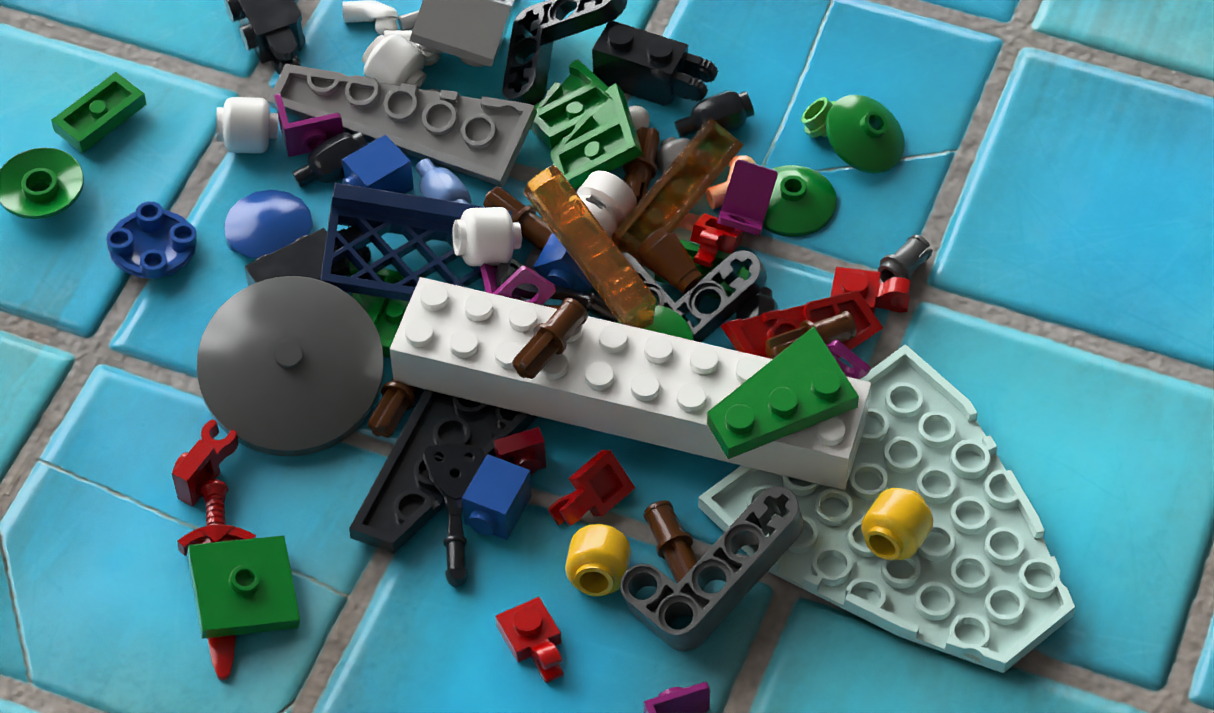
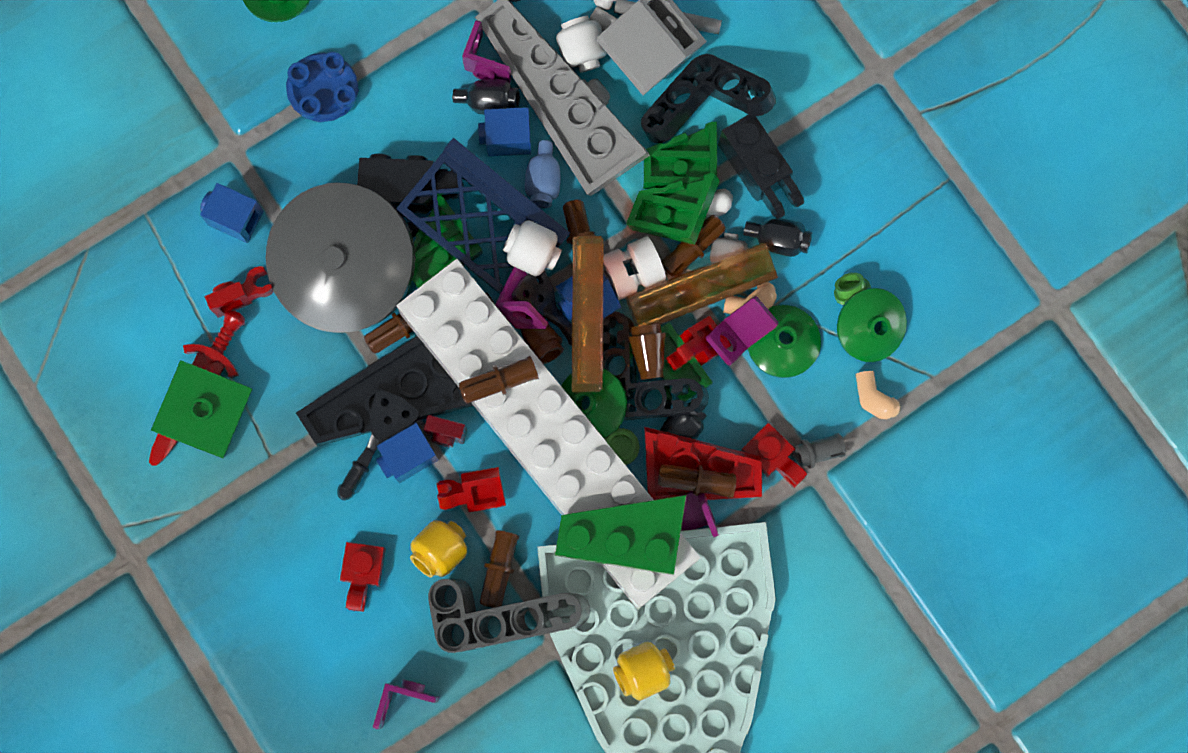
camera: 30 degrees right, 25 degrees up
(138, 396) = (231, 212): none -> blue brick
(246, 125) = (444, 30): white head -> none
(266, 223) = (409, 123): blue dish -> none
(918, 194) = (874, 400): none -> light nougat arm

